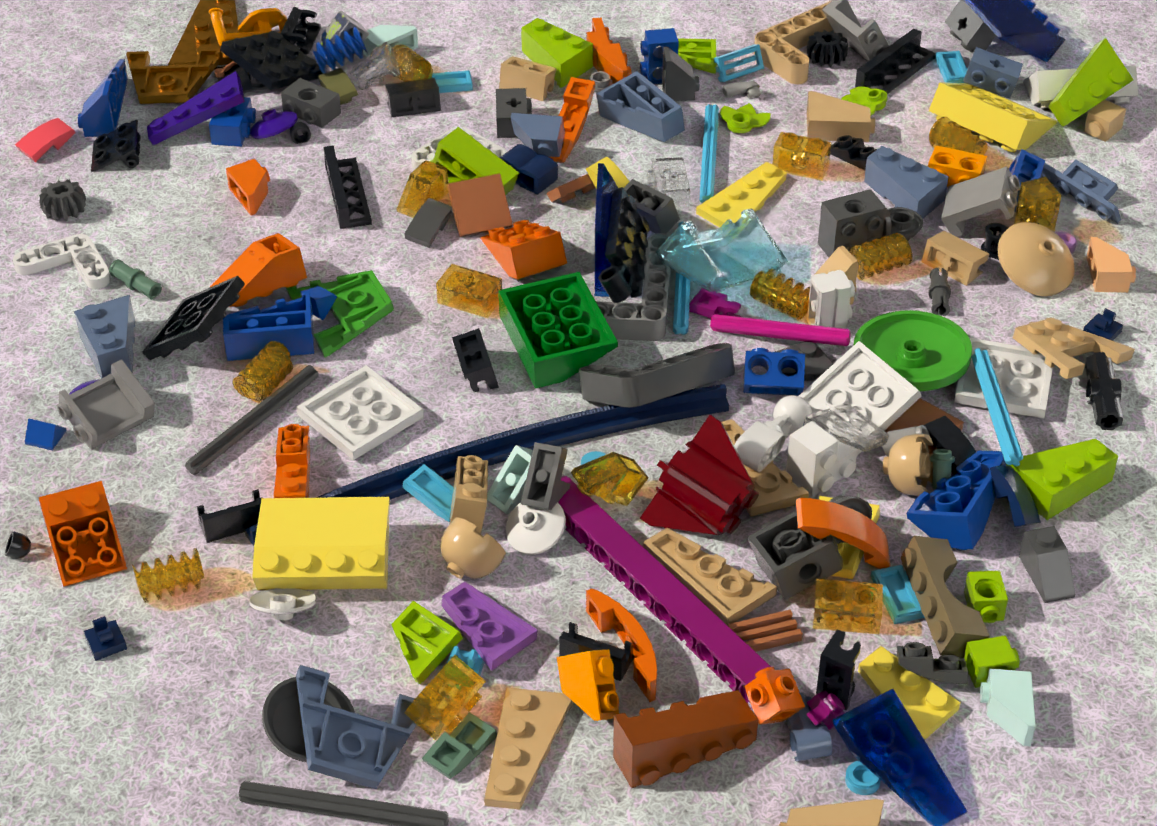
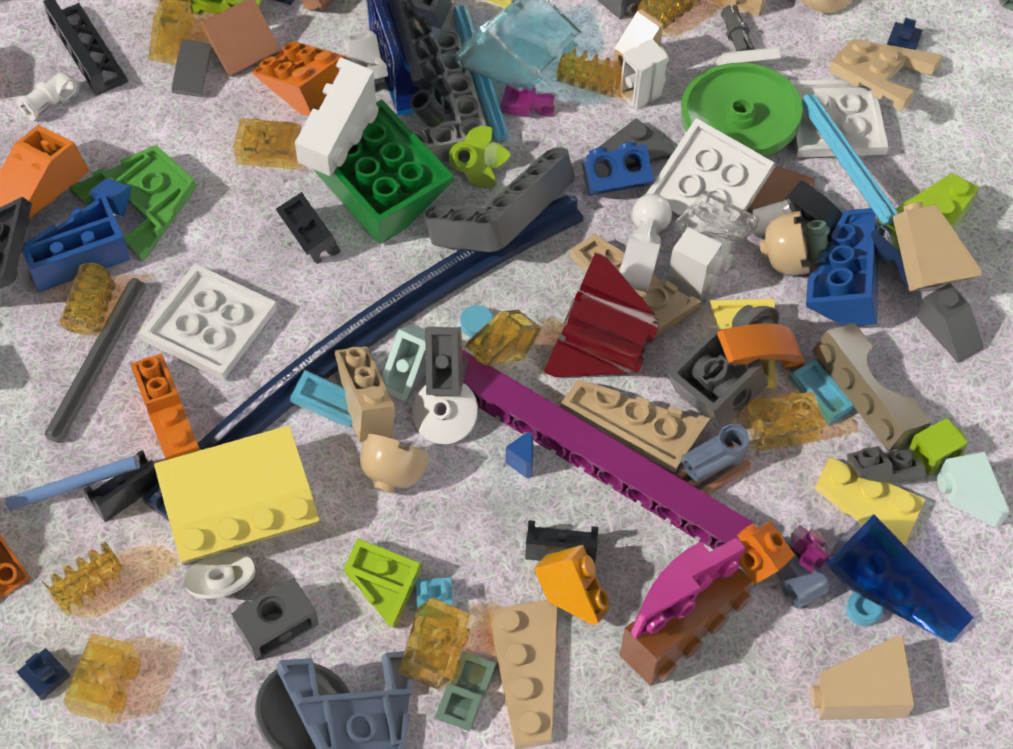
camera: 20 degrees left, 15 degrees up
(150, 653) = (100, 659): none -> clear yellow brick
(190, 501) = (72, 483): none -> medium blue bar
(299, 218) = (48, 95): none -> white connector
(316, 644) = (266, 636): none -> dark grey brick
(487, 625) = (440, 542): medium lavender wing -> none
(531, 274) = (340, 119): none -> white wedge
(581, 244) = (364, 50): none -> white brick
(589, 572) = (520, 455): none -> blue slope
(609, 615) = (556, 495): orange slope -> none
(655, 338) = (483, 156): none -> lime plate
(677, 691) = (681, 582): none -> dark pink slope
(778, 611) = (715, 454): none -> sand blue piece
(780, 330) = (603, 116): dark pink axle -> none
(838, 668) = (809, 503): black hinge -> none
(955, 313) = (758, 56): none -> white tile
(986, 594) = (912, 364): lime brick -> none
(1044, 492) = (931, 248): none -> tan slope
(1103, 391) = (932, 111): black piece -> none

